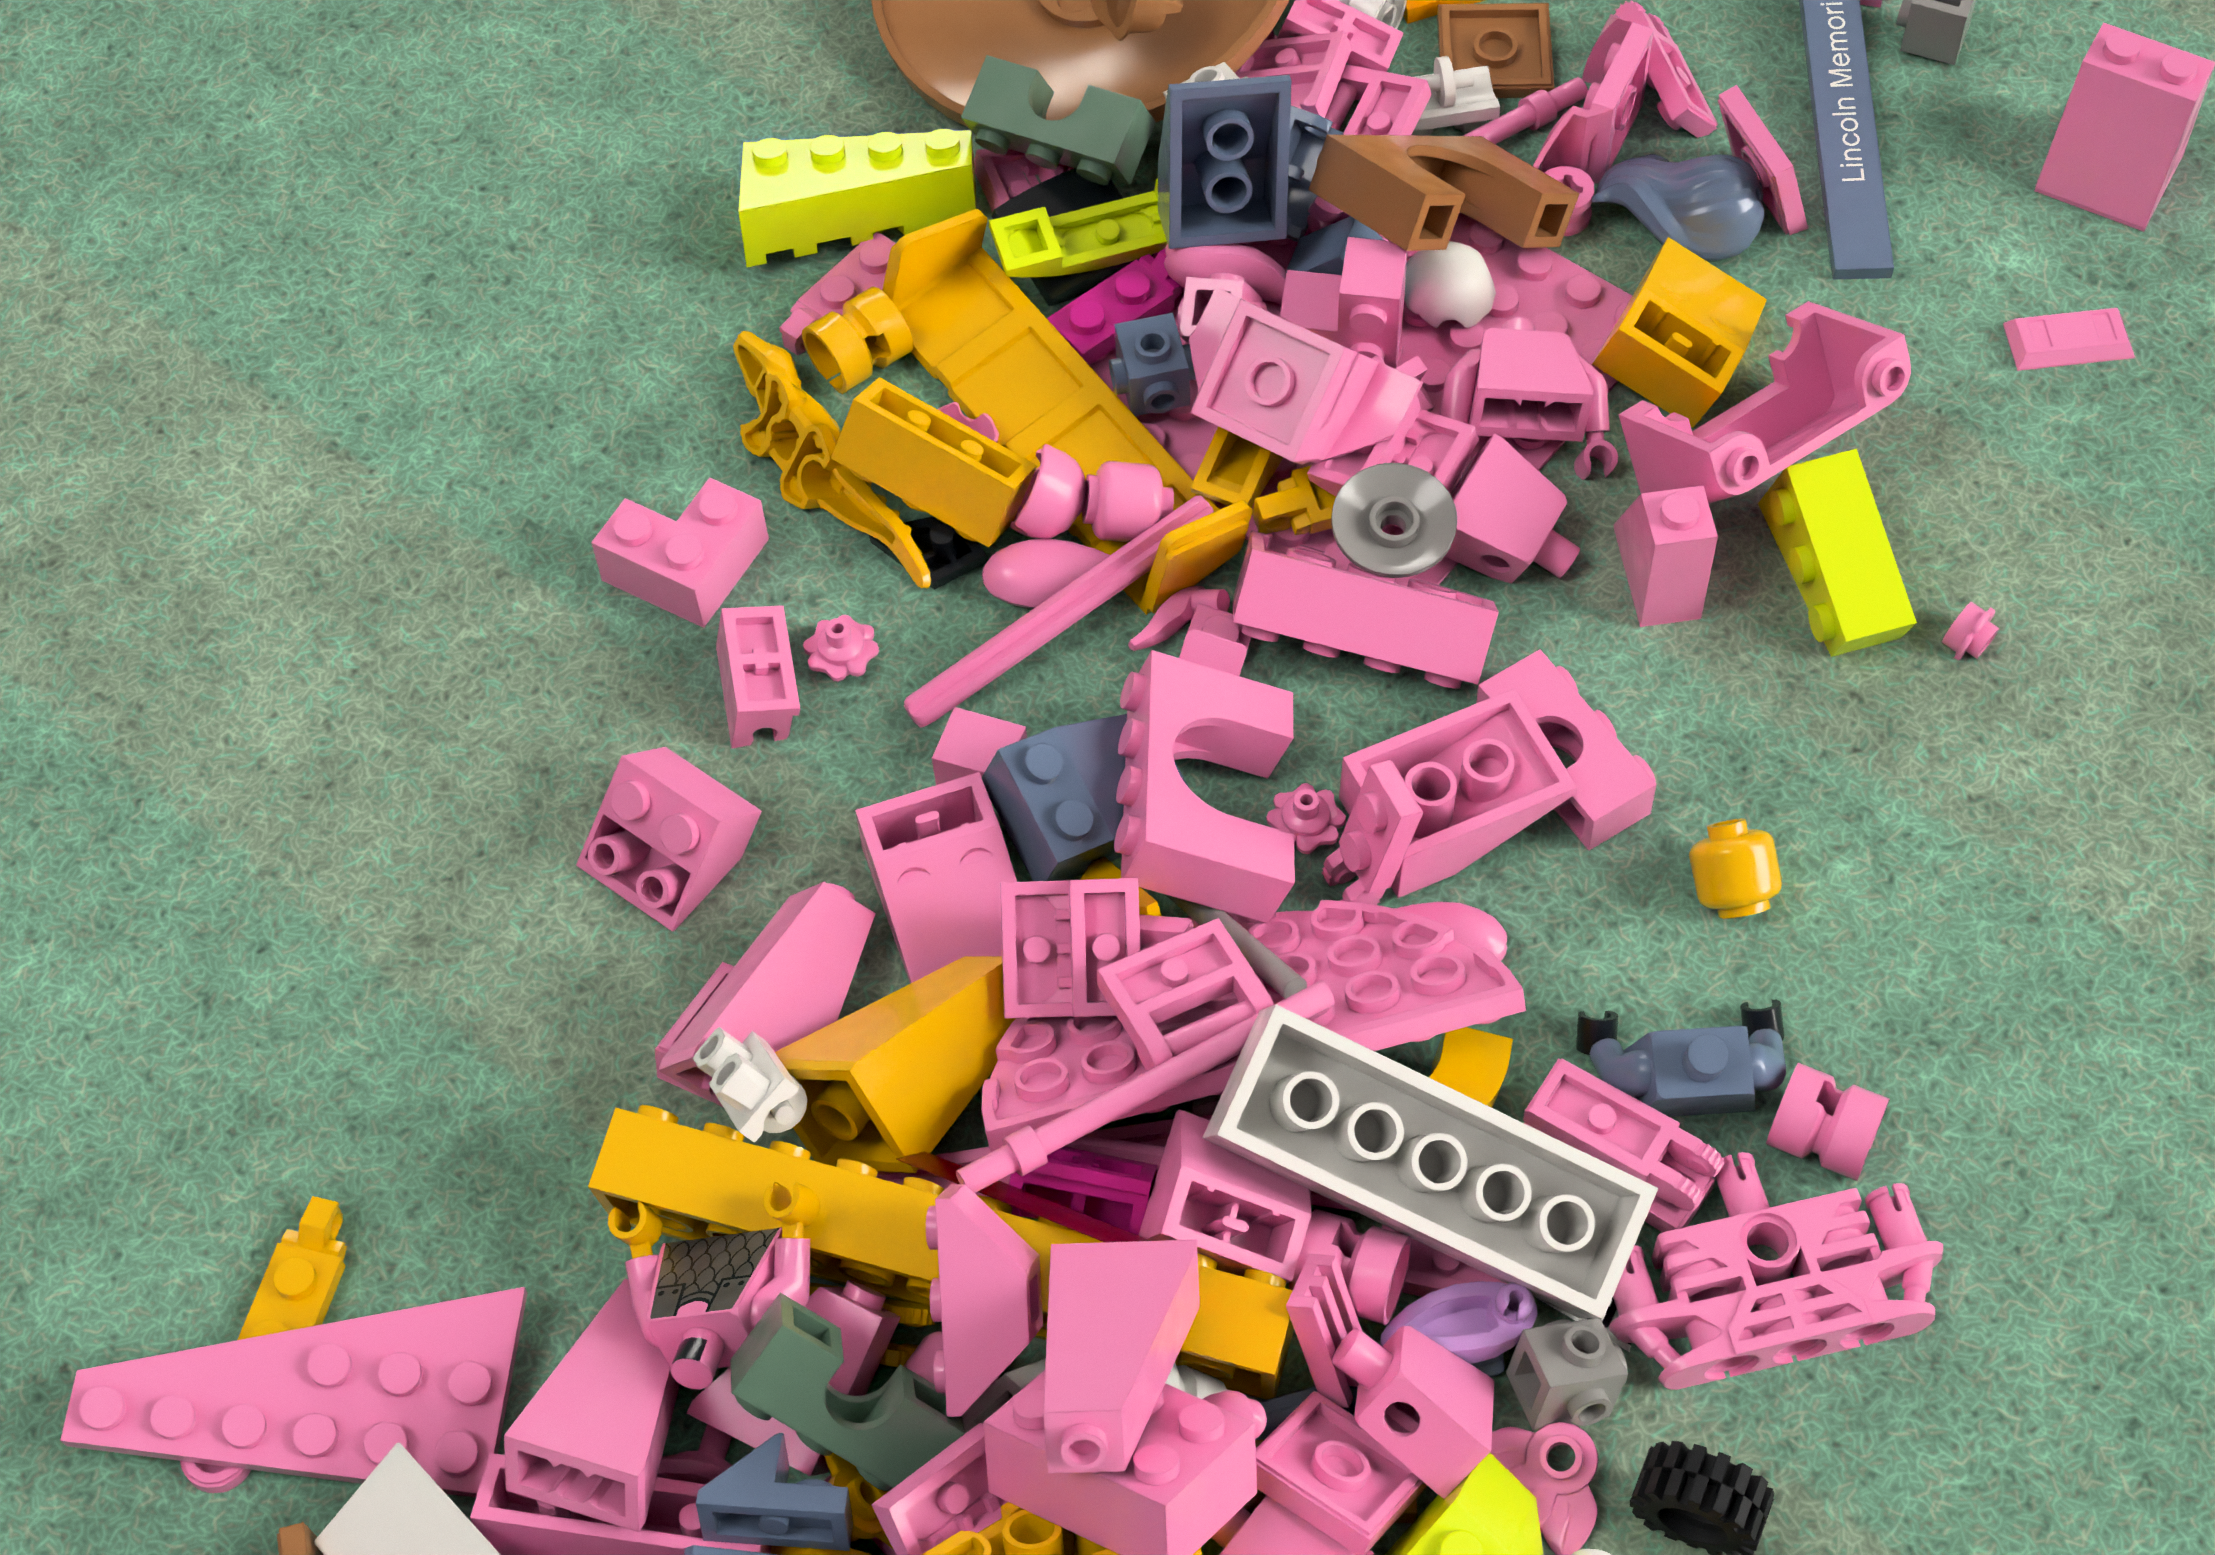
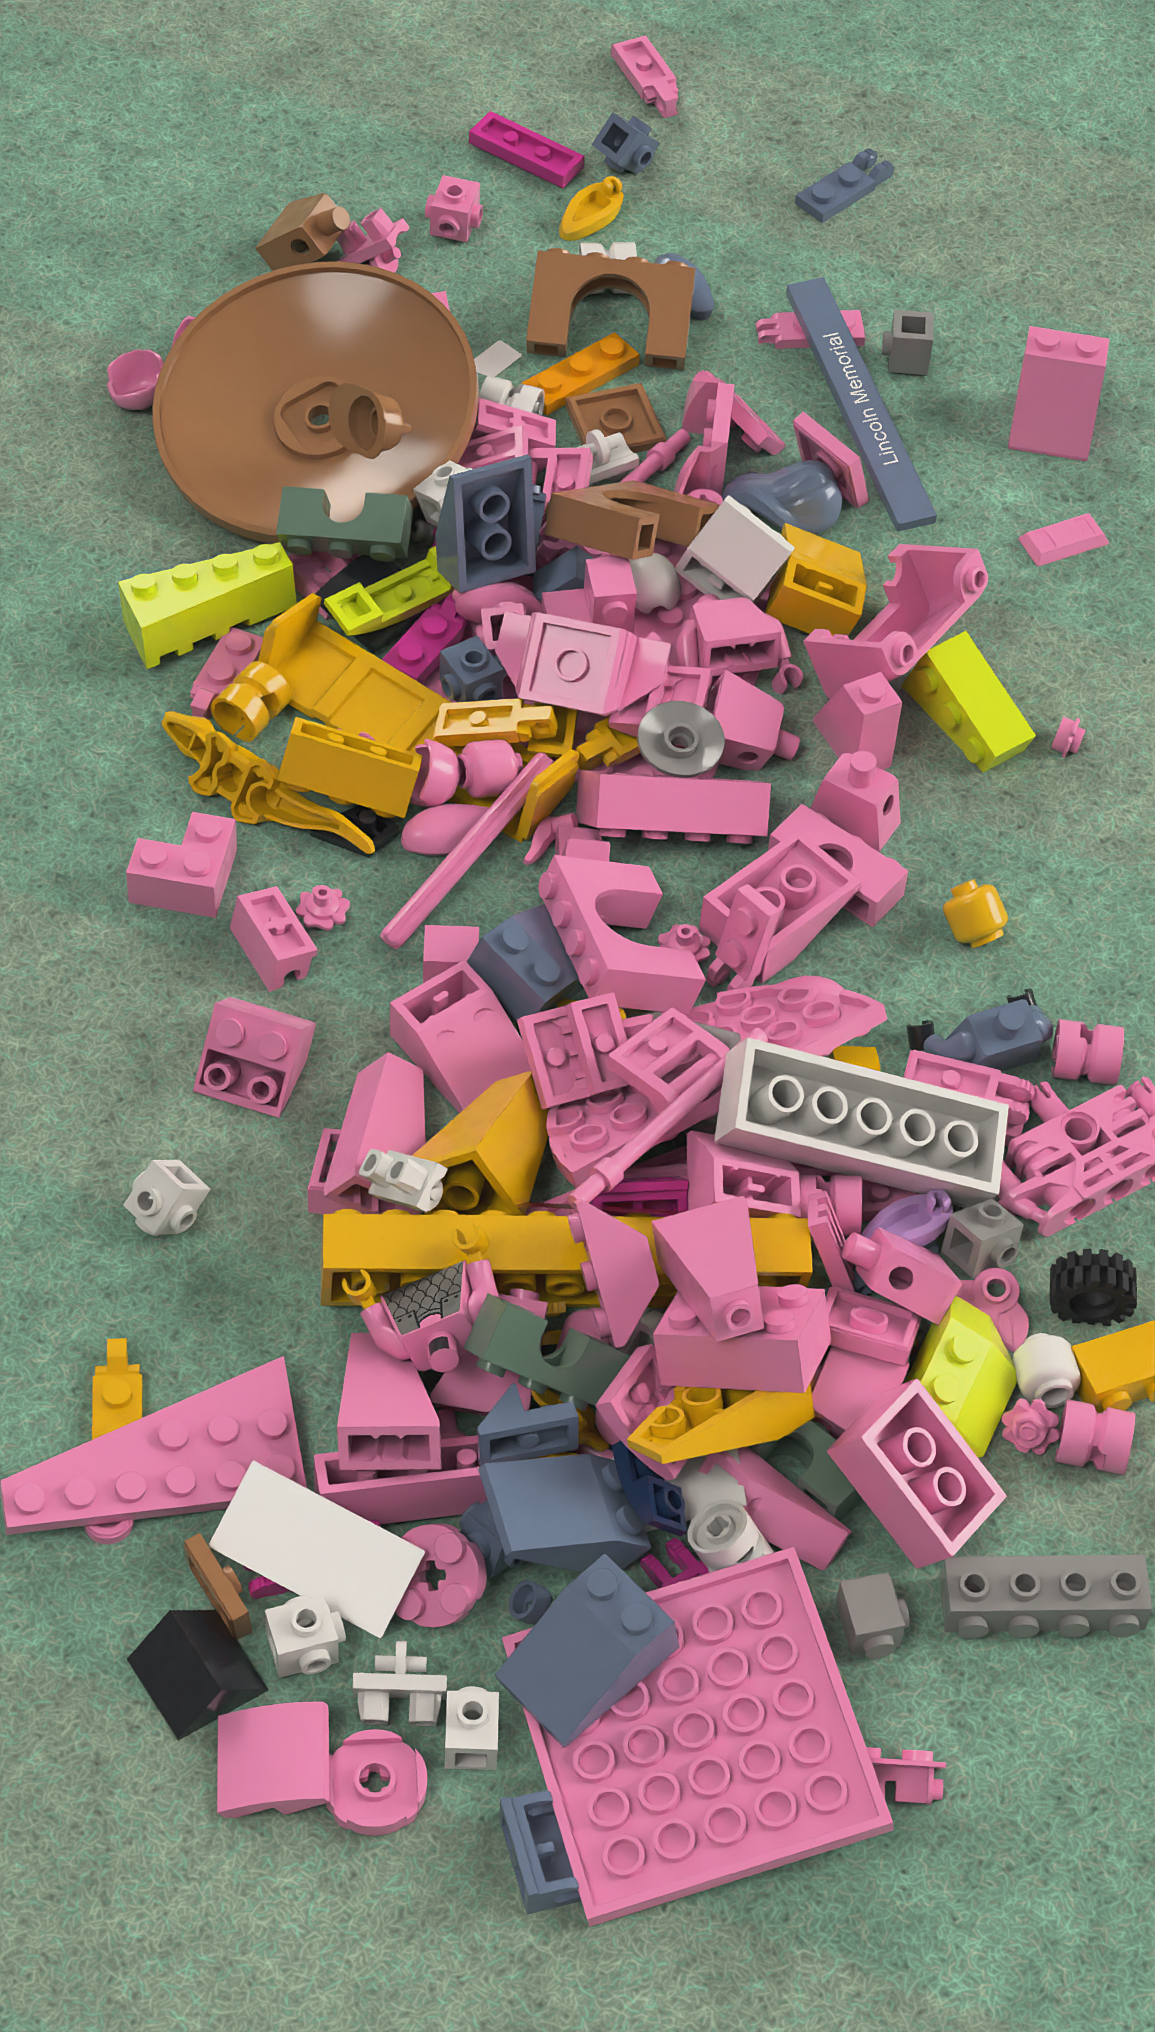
camera: 25 degrees left, 5 degrees down
(466, 1013) = (166, 1198): none -> white brick
(1152, 436) = (493, 719): none -> yellow hinge
(1568, 271) = (734, 554): none -> white slope
(1626, 662) = (860, 798): none -> bright pink torso

